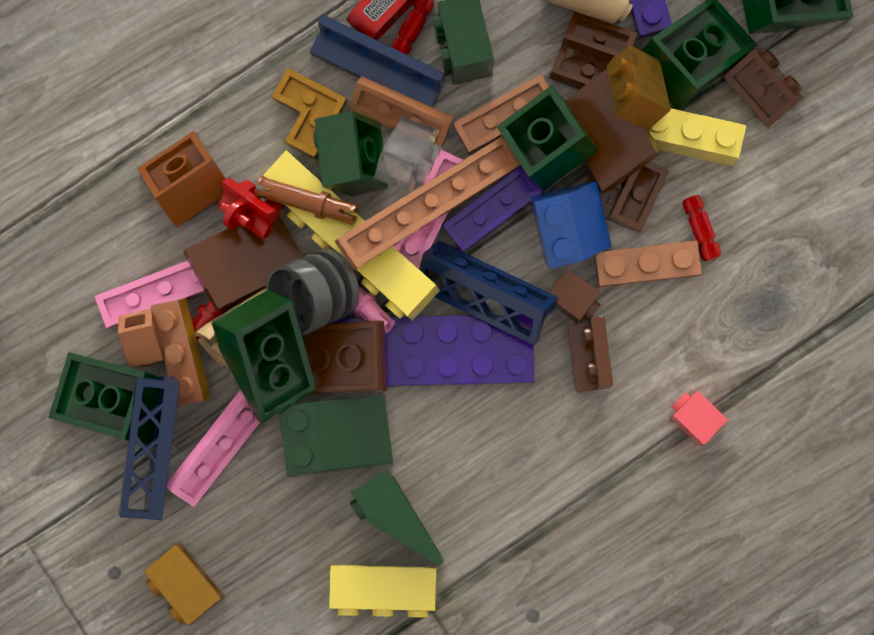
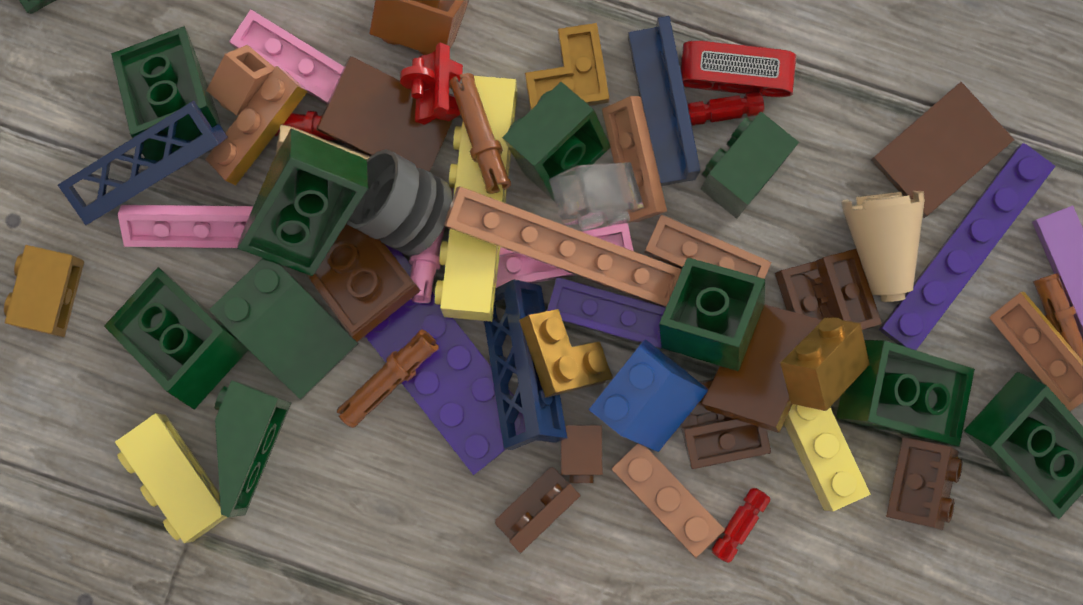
camera: 45 degrees right, 0 degrees up
(286, 516) = (175, 339): none -> dark green slope
(426, 394) = (398, 368): none -> dark orange pin
(503, 265) = (556, 362): none -> pearl gold plate

